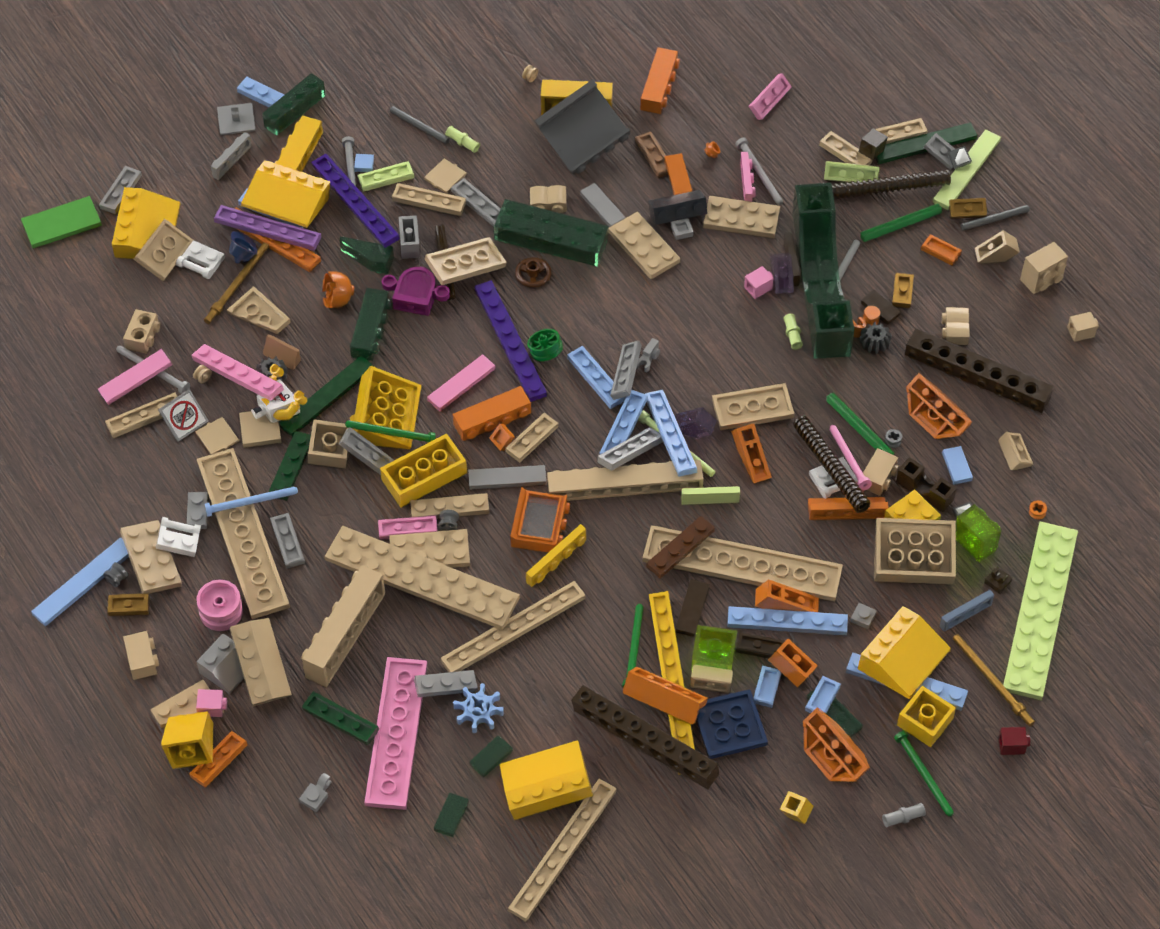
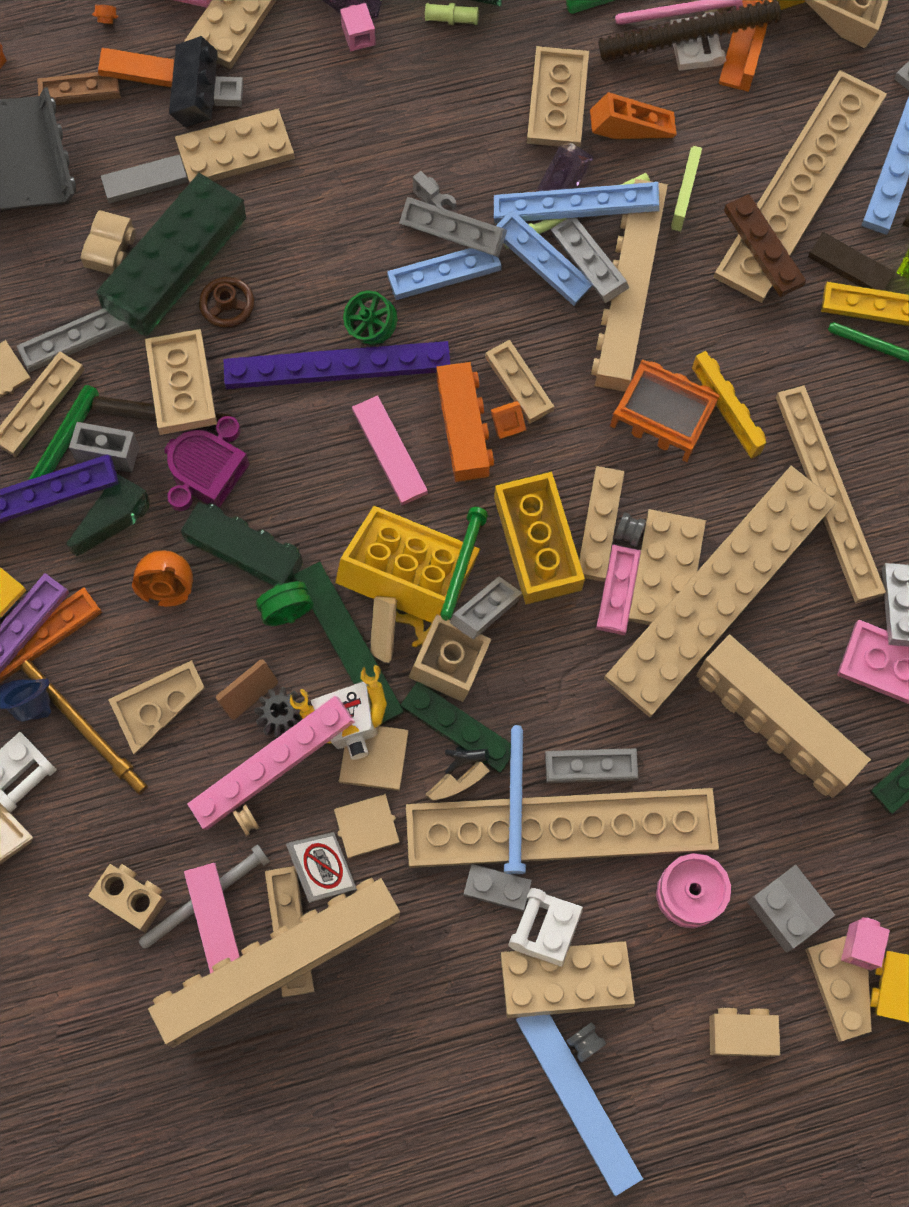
camera: 75 degrees left, 15 degrees up
(119, 403) = (274, 963): none -> tan piece
(128, 604) = (645, 1034): pearl gold plate -> none
(253, 468) = (449, 785): none -> tan slope
(260, 661) = (817, 854): tan slope -> none
(271, 470) = (465, 756): none -> black bar
(337, 352) = (284, 603): none -> green wheel
(339, 407) = (383, 628): none -> tan slope
(424, 220) = (65, 432): none -> green axle
(507, 477) = (573, 433): light grey tile -> none
(782, 597) = (873, 153): orange slope -> none

